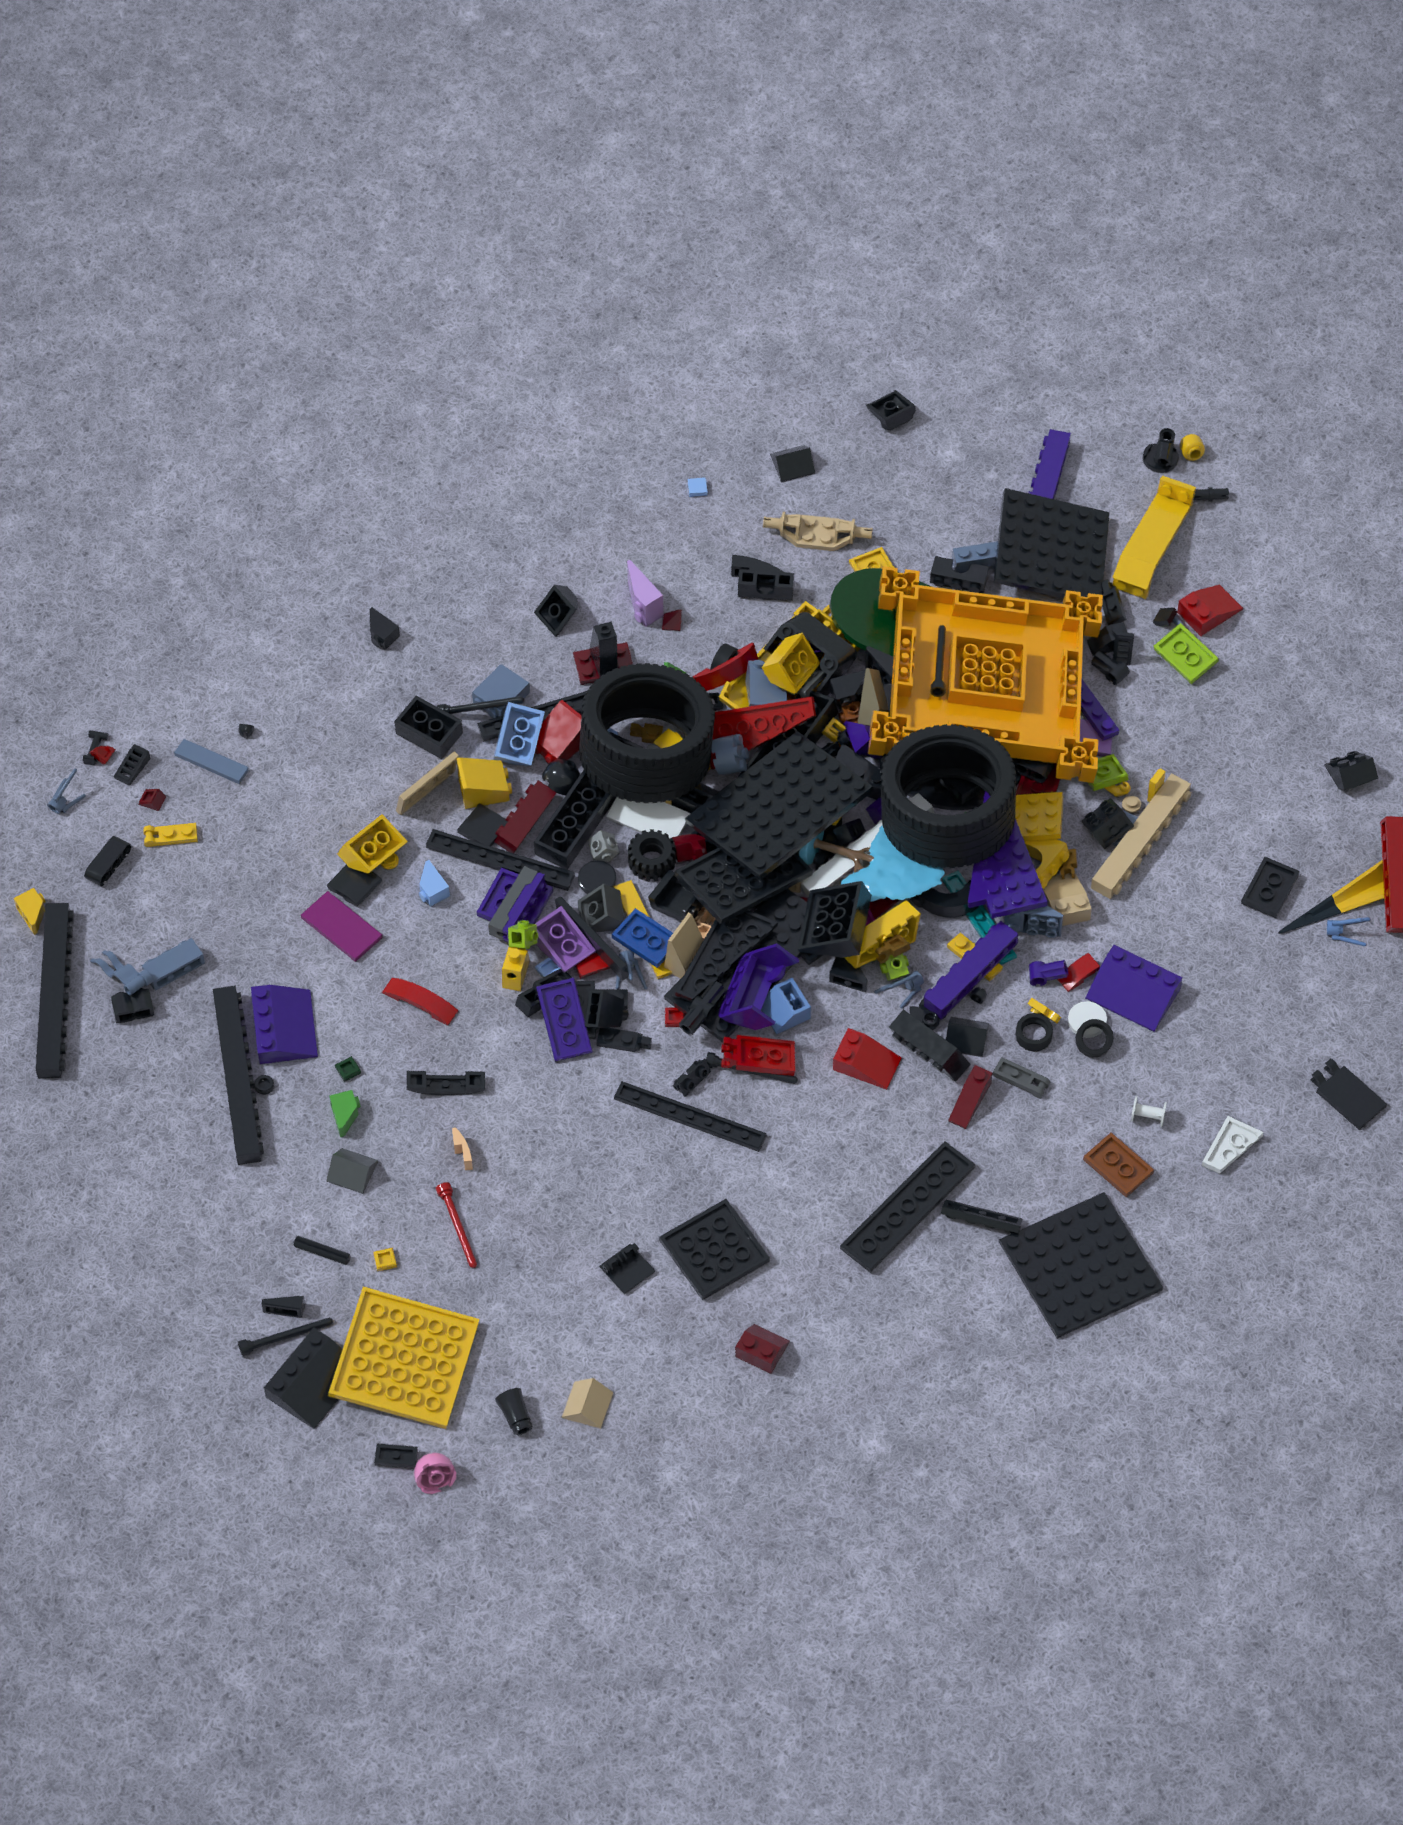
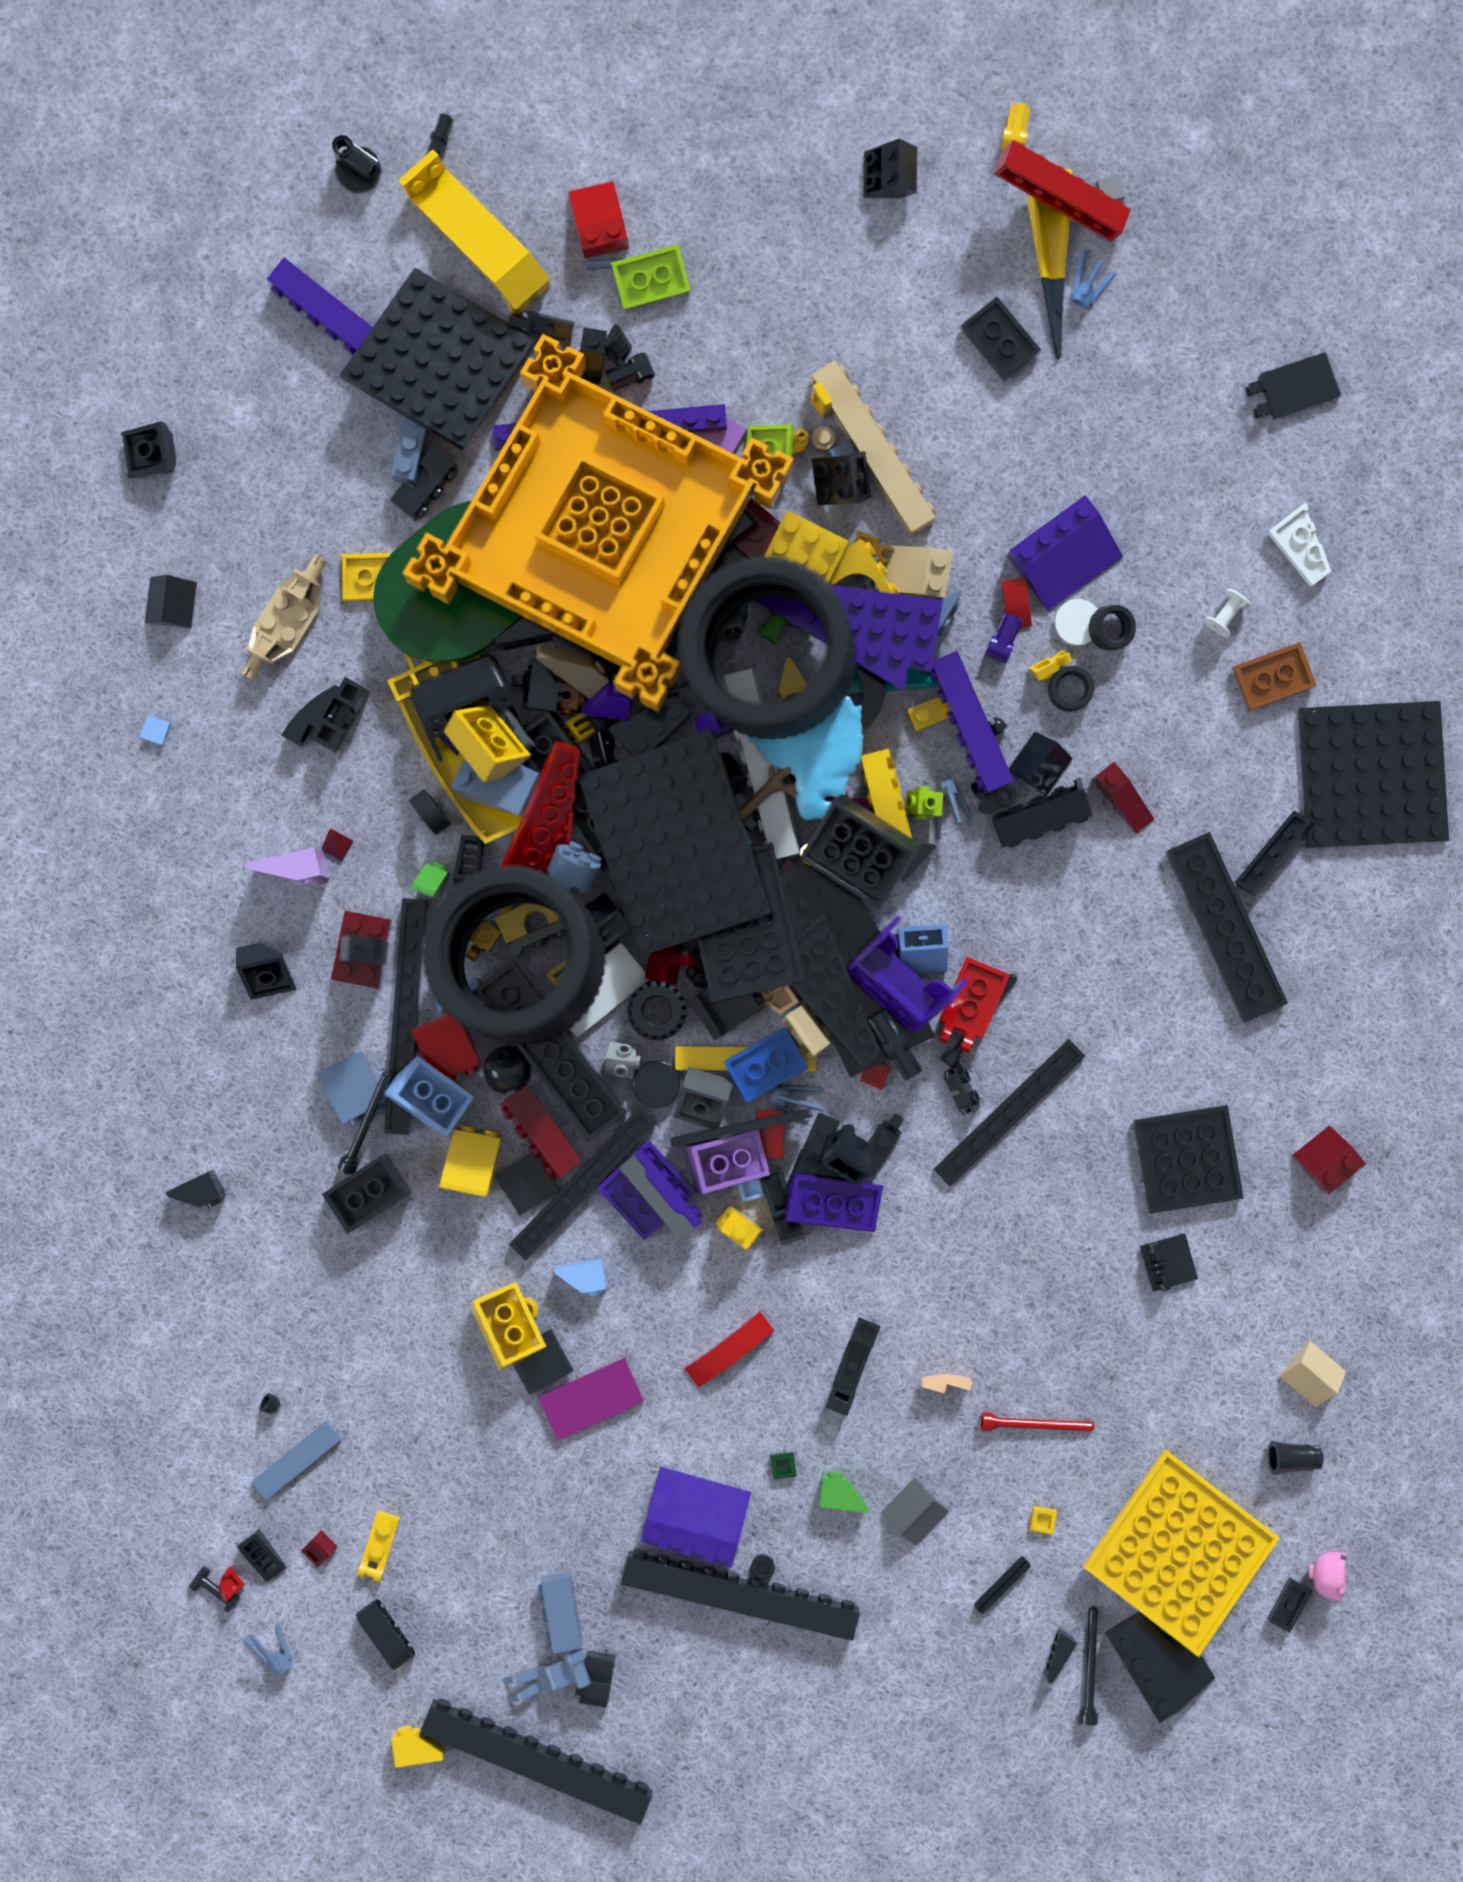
camera: 65 degrees left, 30 degrees up
(427, 783) = (448, 1228): tan tile -> none
(522, 935) = (715, 1209): lime brick -> none
(728, 670) = (451, 814): red slope -> none
(865, 1059) = (1026, 889): red slope -> none
(893, 946) = (914, 796): pearl gold plate -> none
(938, 687) = (601, 587): black piece -> none
(1021, 1077) = (1120, 730): dark grey plate -> none
(1165, 616) = (588, 275): black tile -> none
(1192, 447) = (364, 125): yellow head -> none

